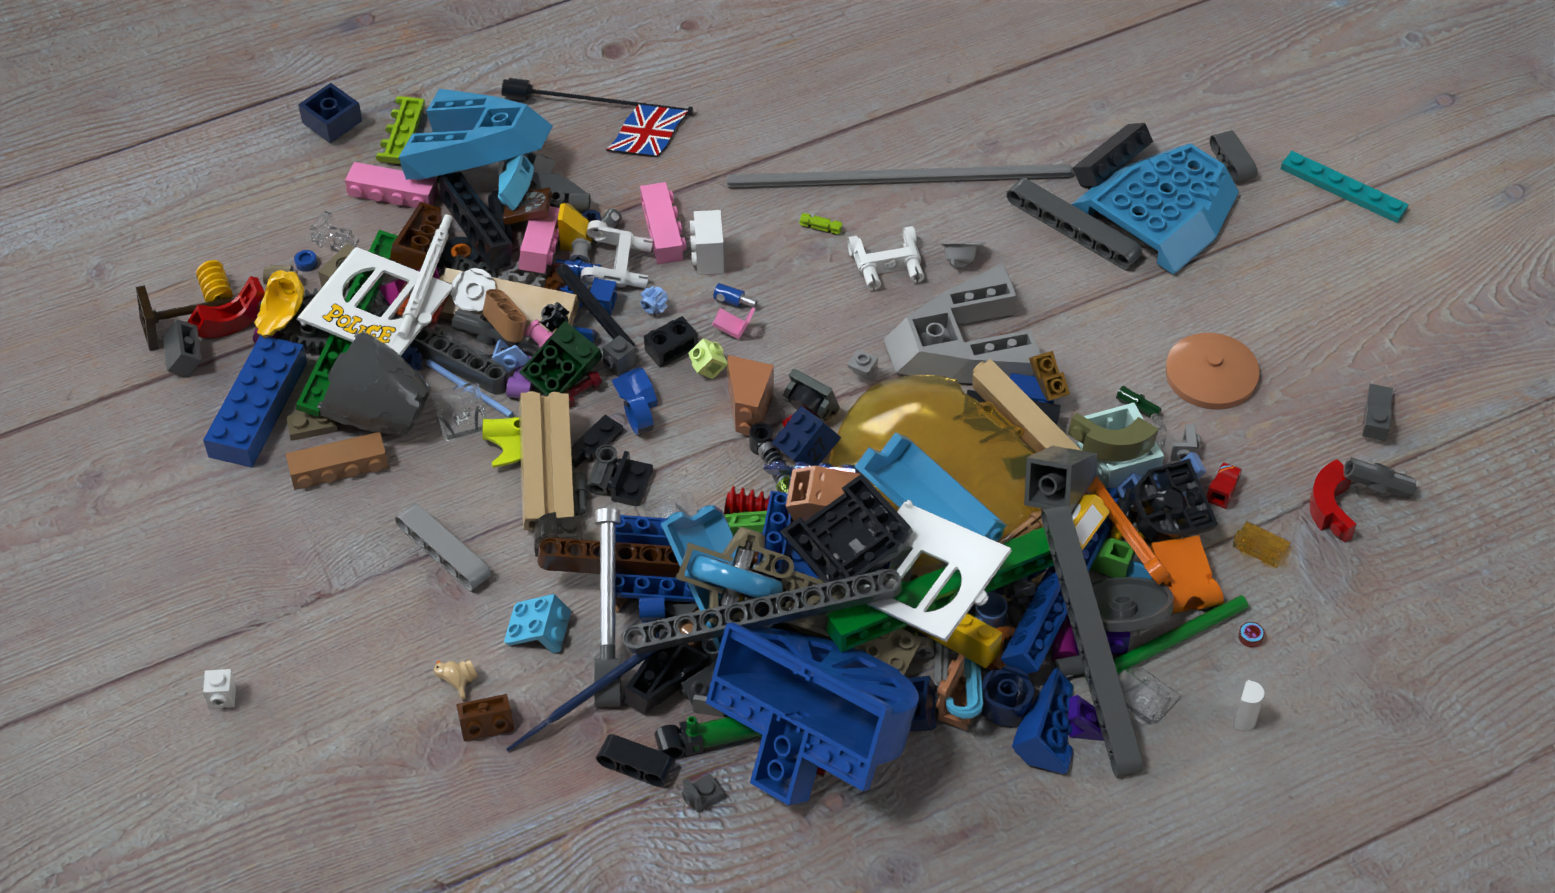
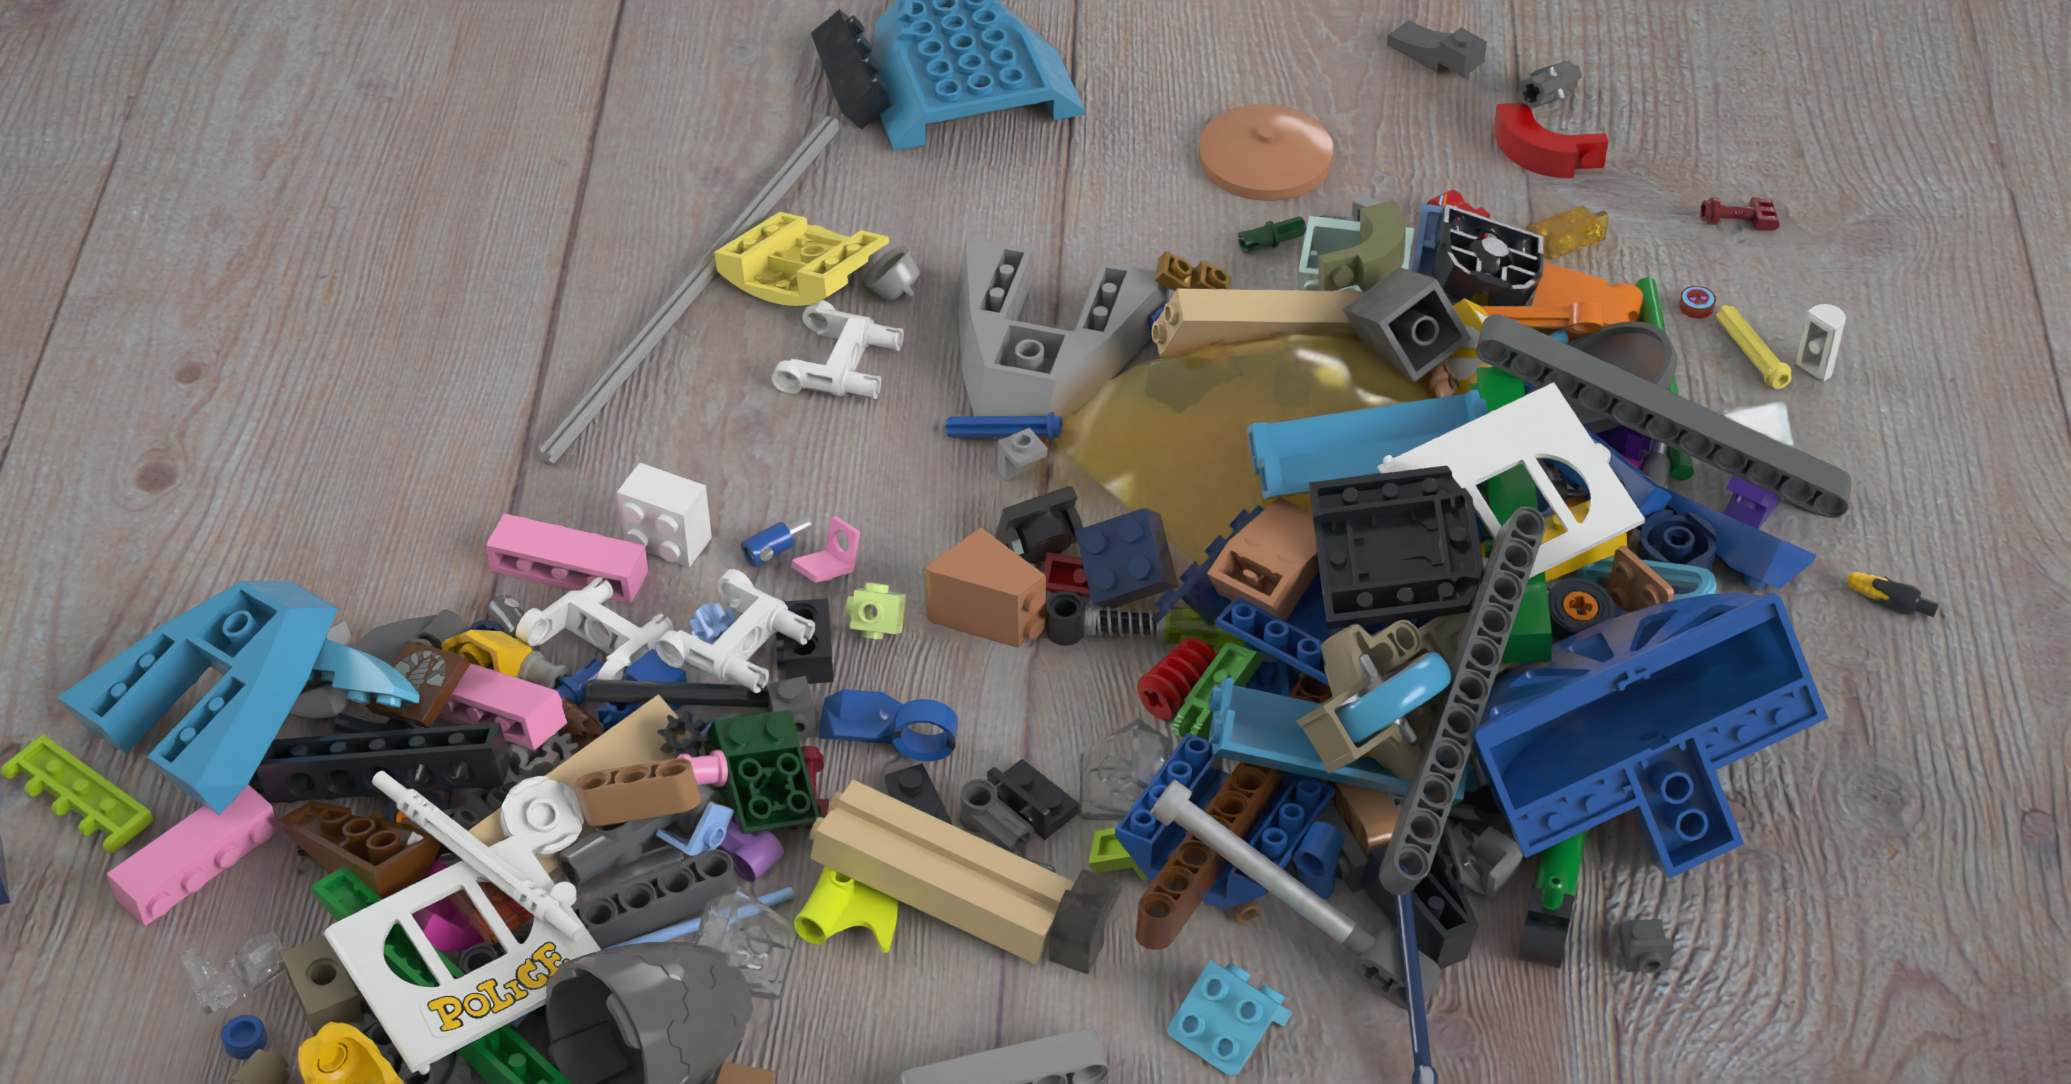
camera: 60 degrees left, 5 degrees down
(635, 760) = (1551, 997): black beam -> none
(643, 132) = (348, 496): flag -> none
(656, 311) = (729, 654): none -> white connector
(821, 223) = (713, 394): lime axle -> none
(895, 368) = (1004, 426): none -> blue axle
(909, 646) = (1581, 594): none -> black bush
(943, 203) = (794, 261): none -> light yellow slope
(1062, 824) = (1892, 594): none -> black piece
(1074, 223) = (928, 157): dark grey beam -> none
(1214, 696) = (1774, 372): none -> light yellow axle
(1362, 639) = (1759, 210): none -> dark red hinge

